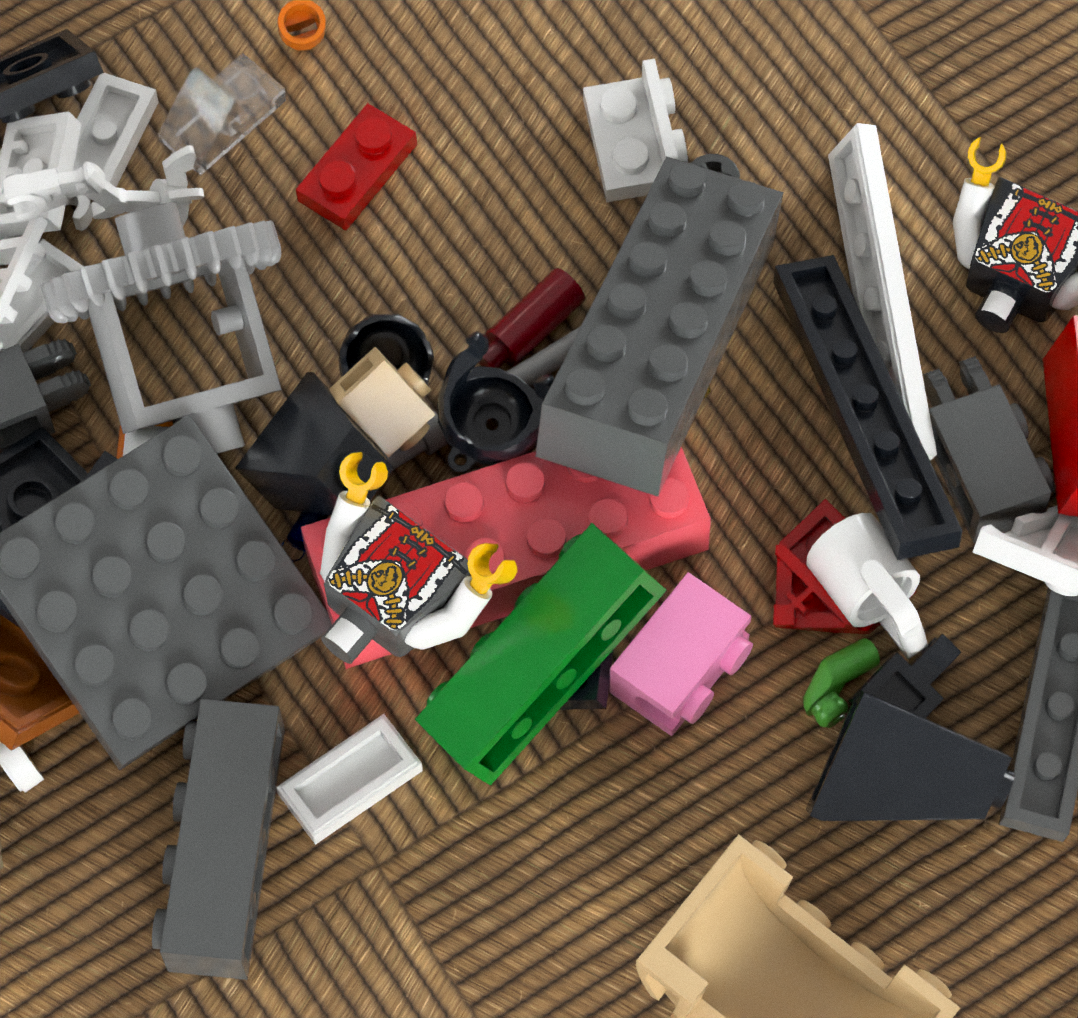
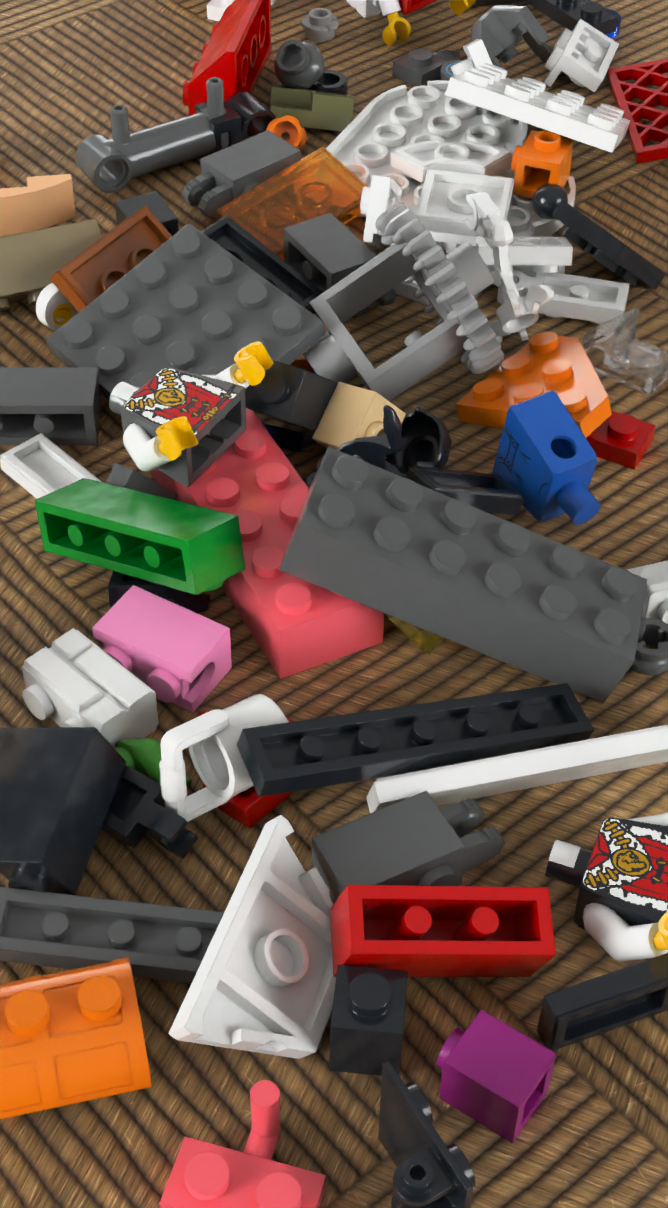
camera: 80 degrees right, 20 degrees down
(318, 193) = (537, 368): none -> orange plate
(404, 675) = (131, 479): none -> dark grey plate
(446, 221) = (547, 460): none -> blue torso
(471, 303) = (478, 490): none -> black tile
(745, 732) = (88, 688): none -> white brick

